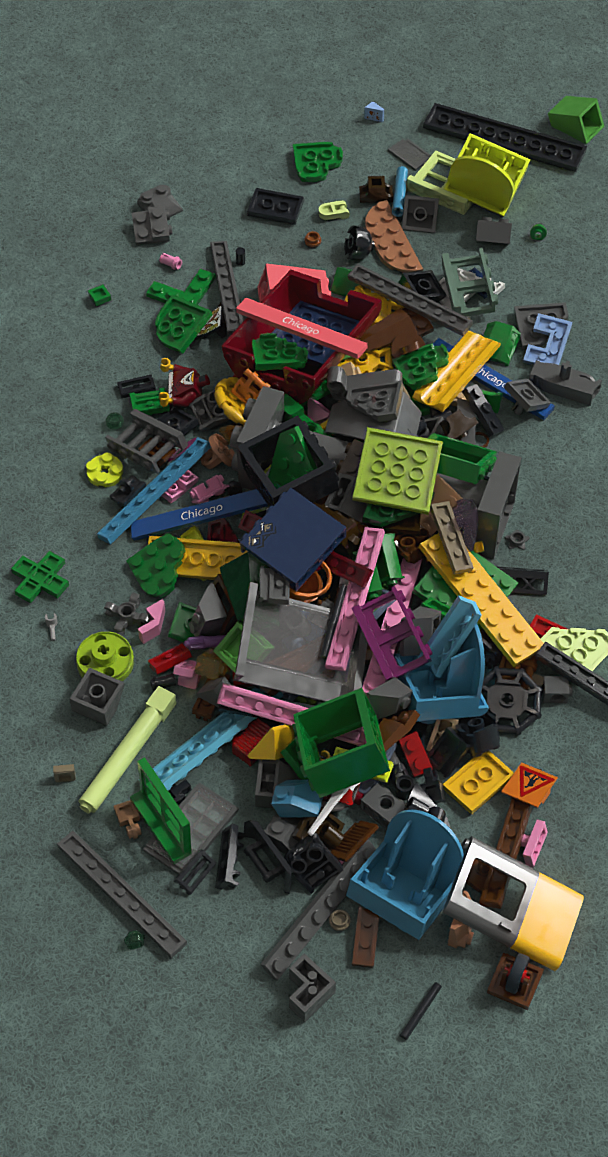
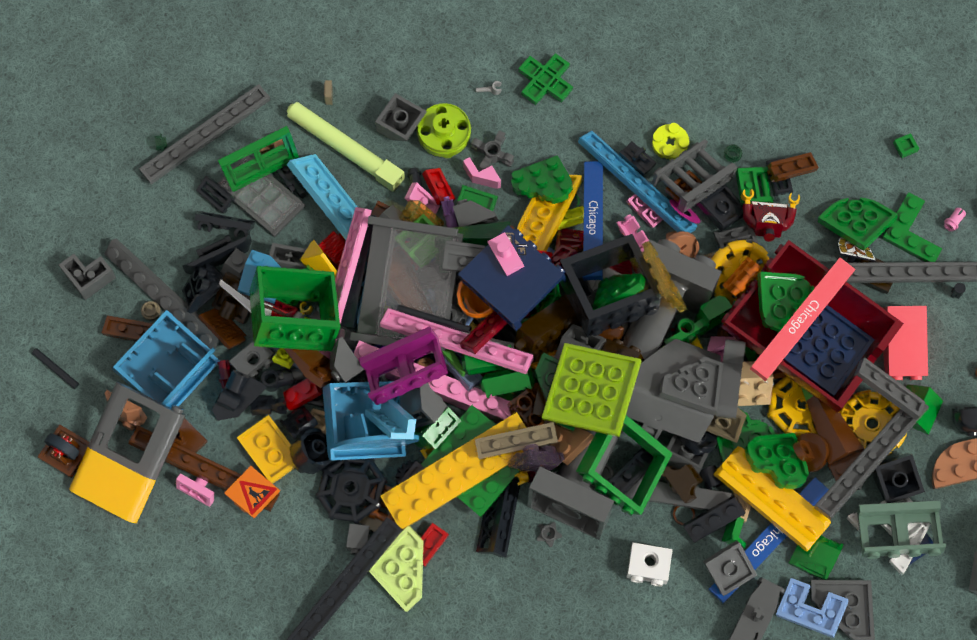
camera: 95 degrees right, 15 degrees up
(128, 373) = (792, 167): none -> reddish brown hinge
(273, 538) = (505, 254): none -> bright pink tile
(279, 416) = (660, 273): none -> clear yellow plate
(350, 280) = (890, 388): none -> dark grey plate
(535, 456) = (639, 571): none -> white brick

